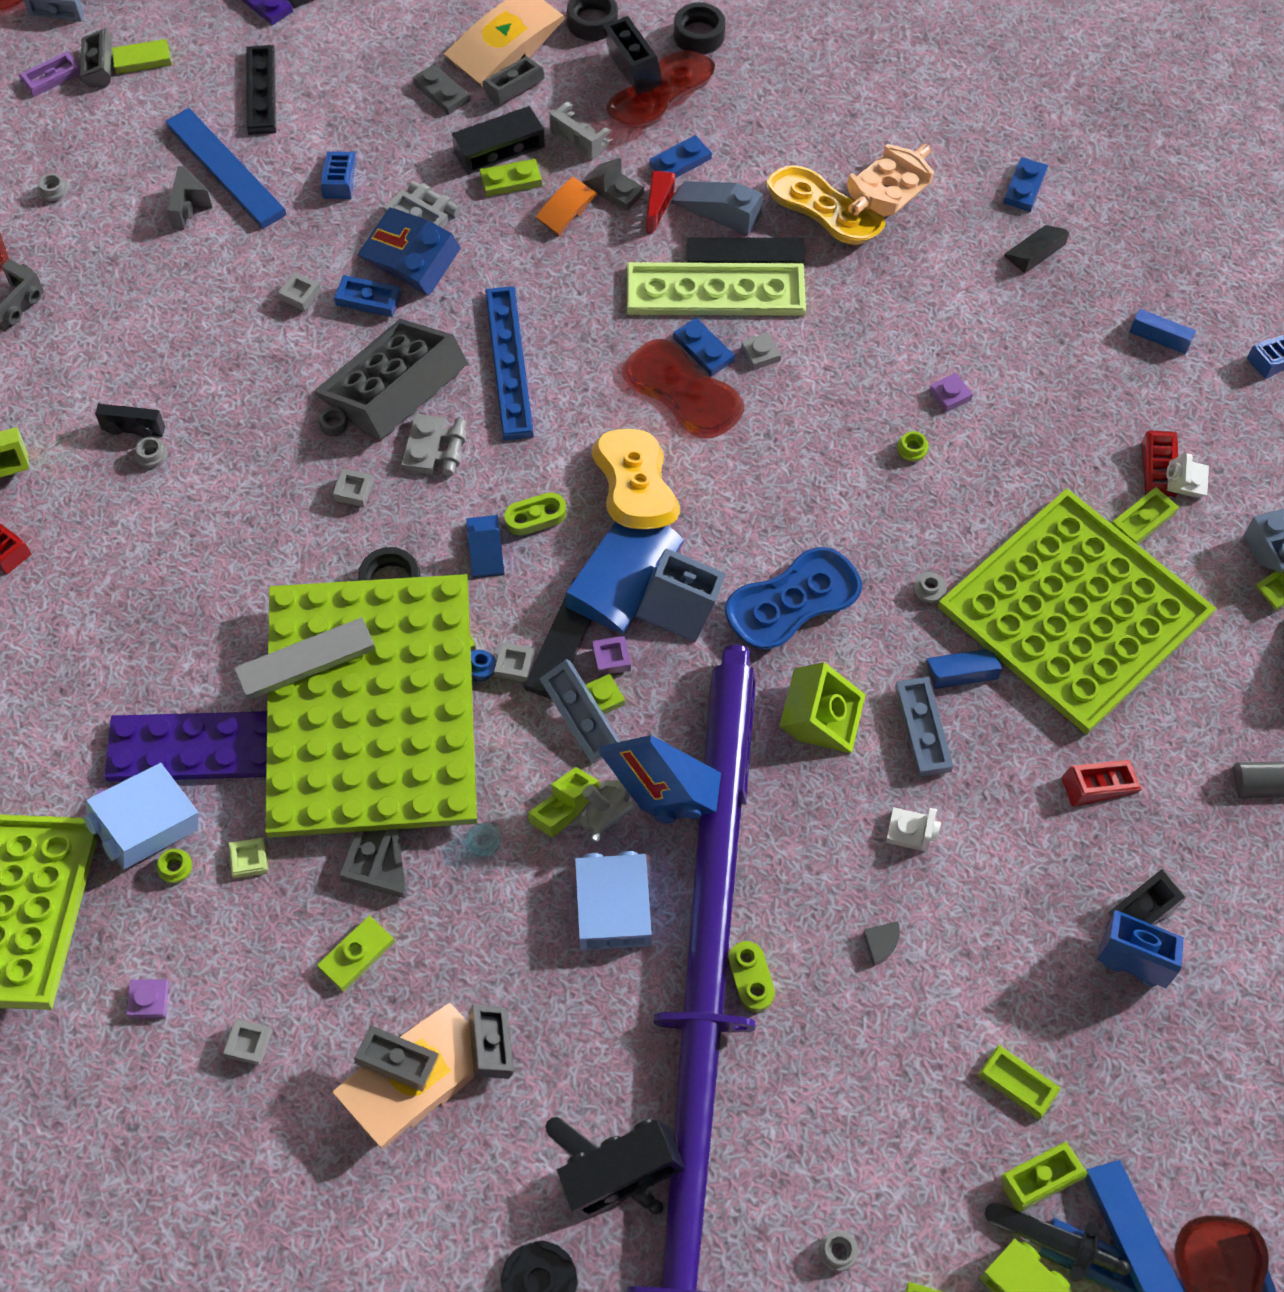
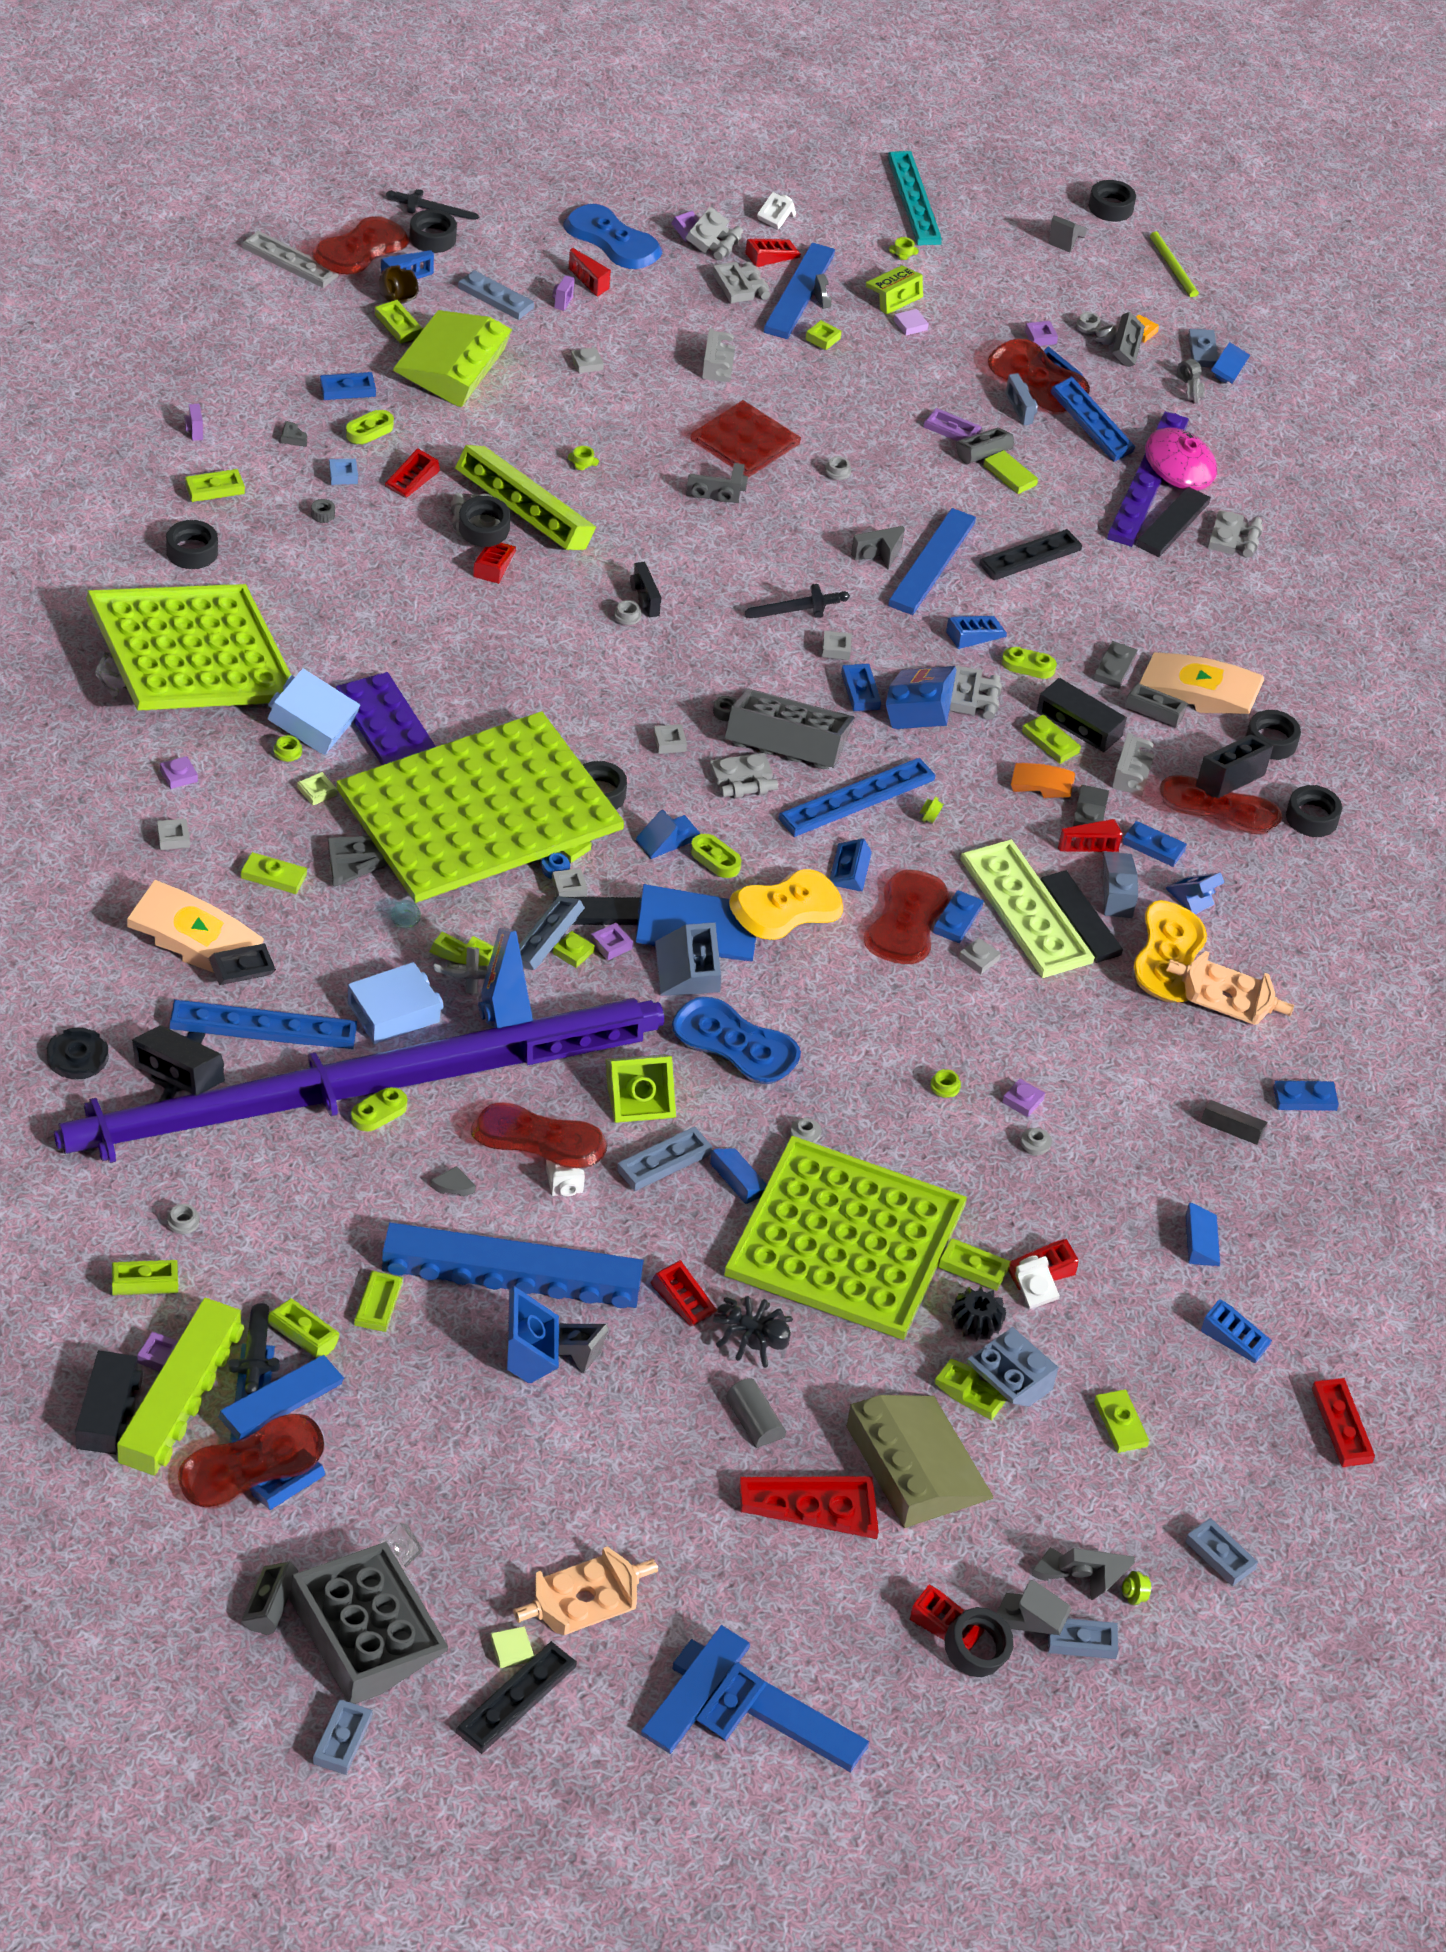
camera: 60 degrees right, 15 degrees down
(237, 280) = (816, 601): none -> black sword
(305, 658) = (488, 747): light grey tile -> none
(396, 1058) = (196, 903): dark grey plate -> none
(406, 149) = (1029, 662): none -> lime plate
(561, 308) = (931, 810): none -> lime plate
(580, 1055) = (262, 1024): none -> blue tile
(595, 406) = (851, 864): none -> blue slope
(756, 151) = (1196, 891): none -> blue slope
(838, 852) = (560, 1141): none -> clear red plate
(1009, 411) = (1038, 1146): none -> light grey plate
(1020, 932) = (512, 1263): none -> blue brick
(1173, 736) = (760, 1330): none -> black animal
(1207, 539) = (978, 1313): none -> black gear

